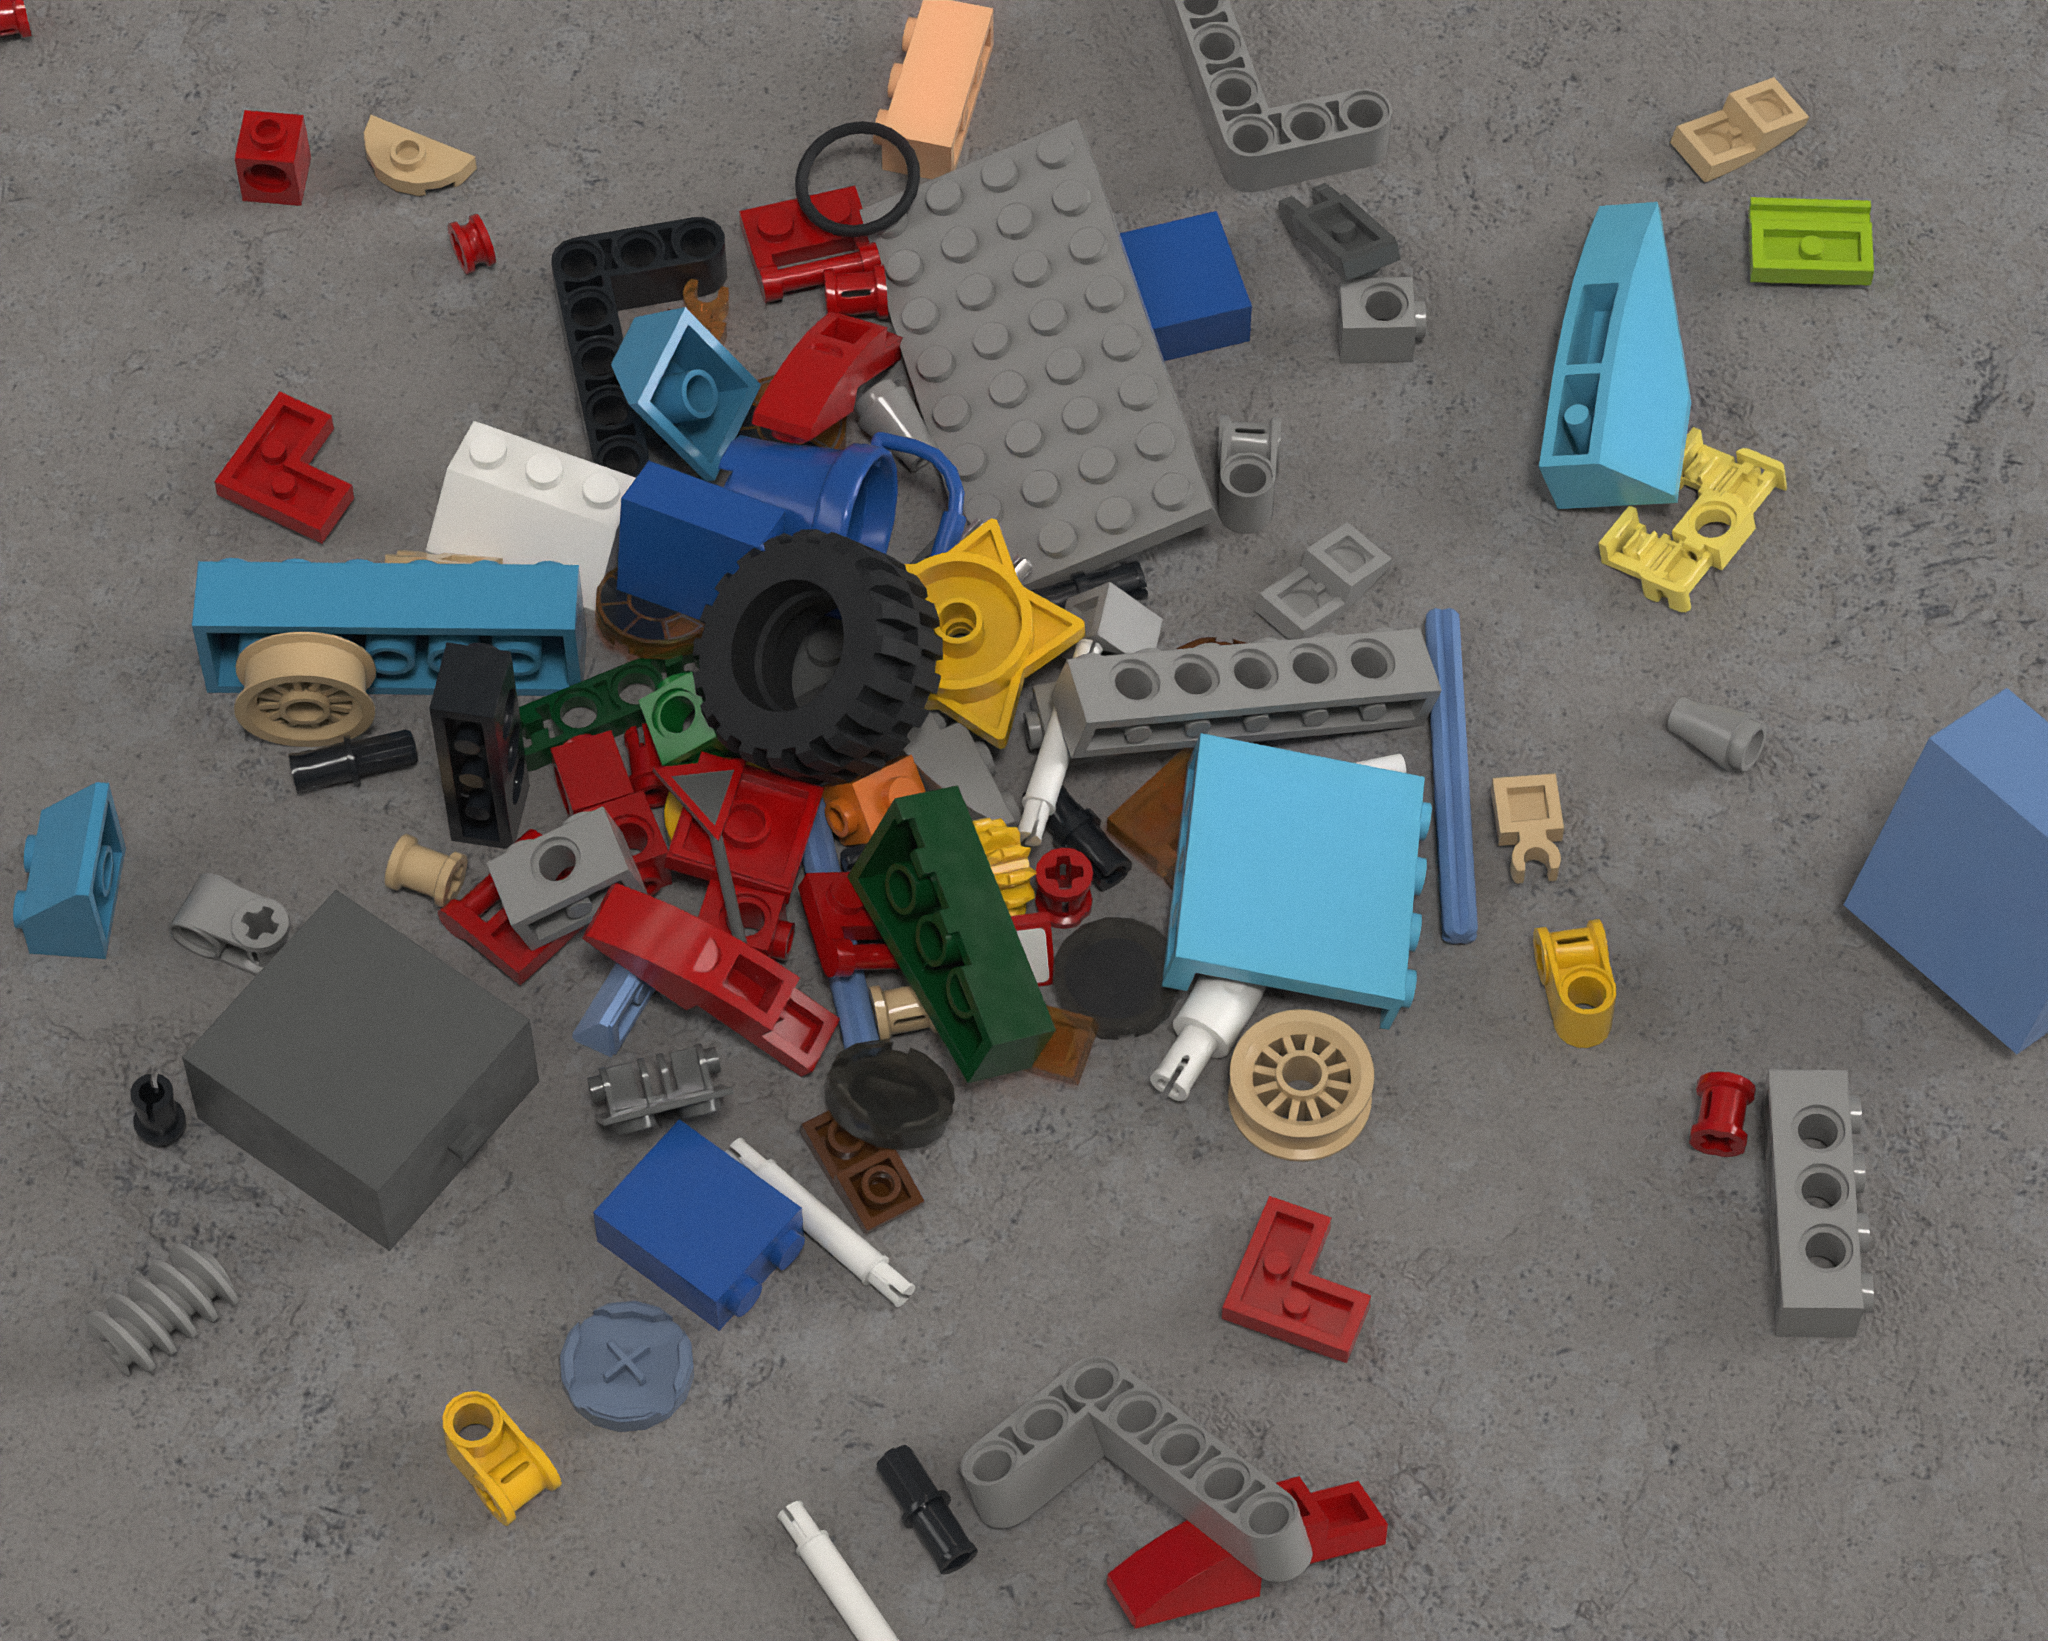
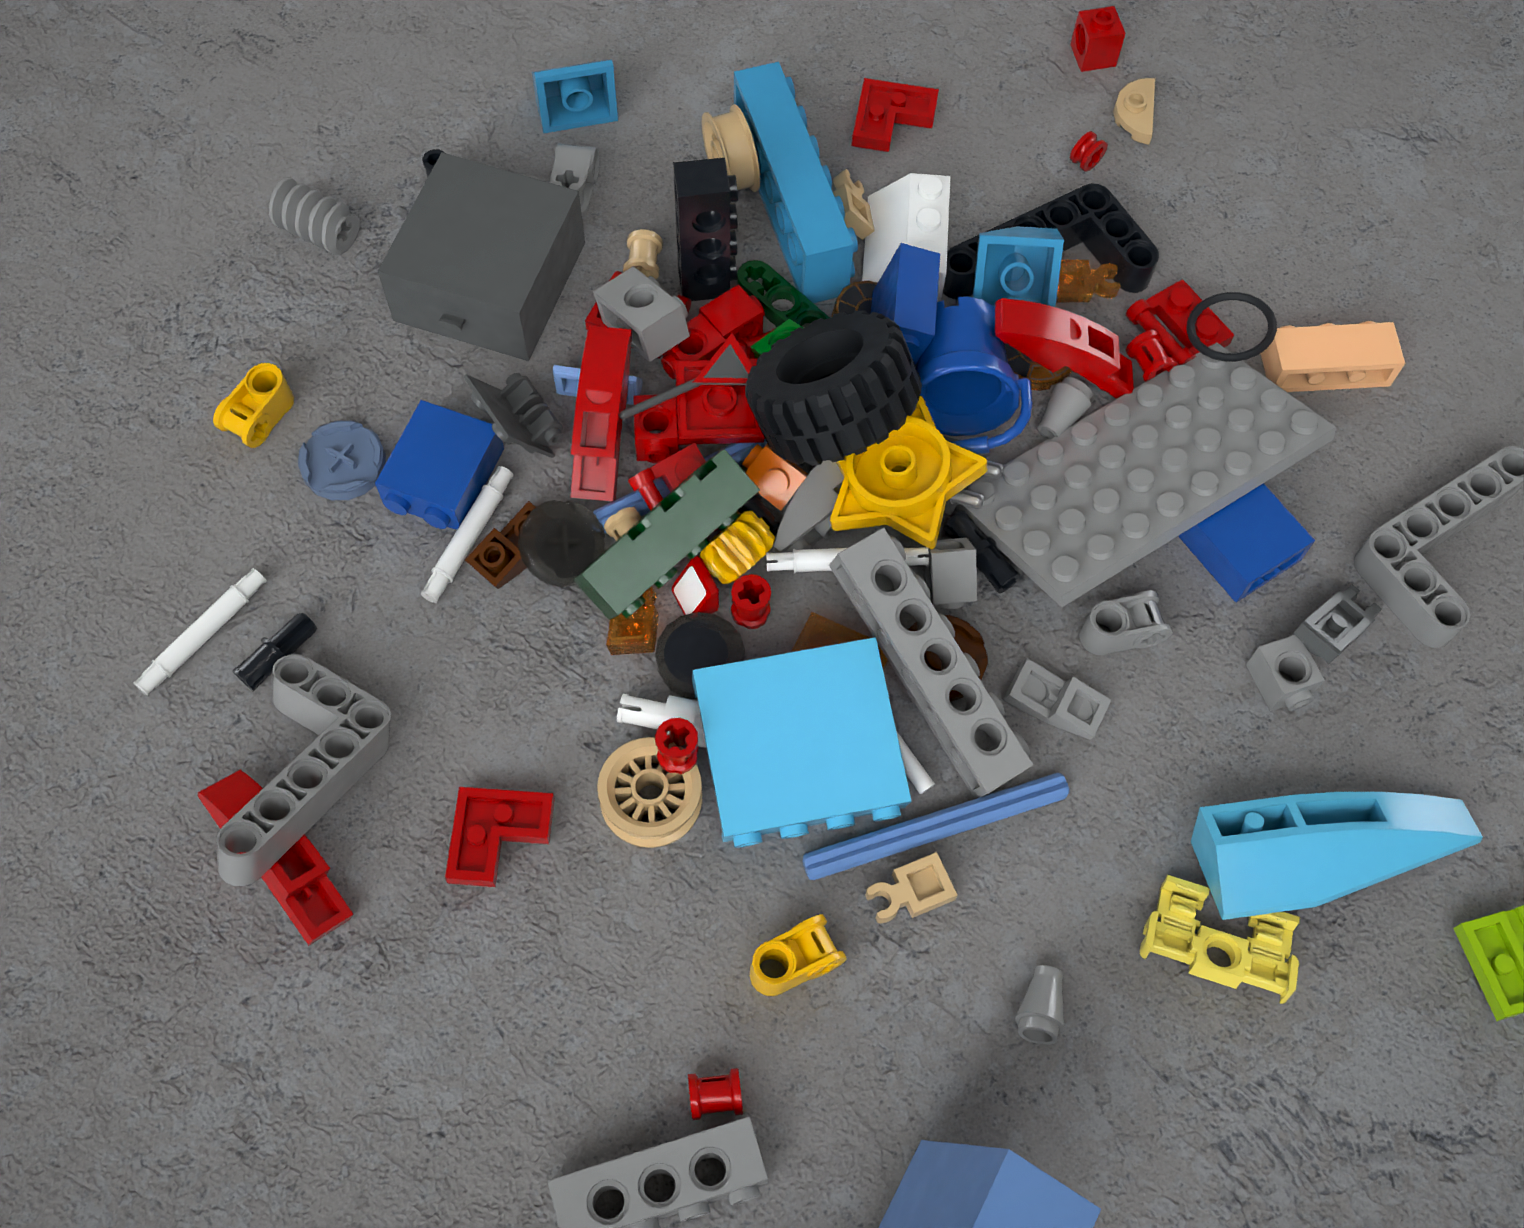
camera: 70 degrees right, 5 degrees up
(1081, 831) = (799, 602): black pin -> none
(1270, 1012) = (680, 733): none -> red bush

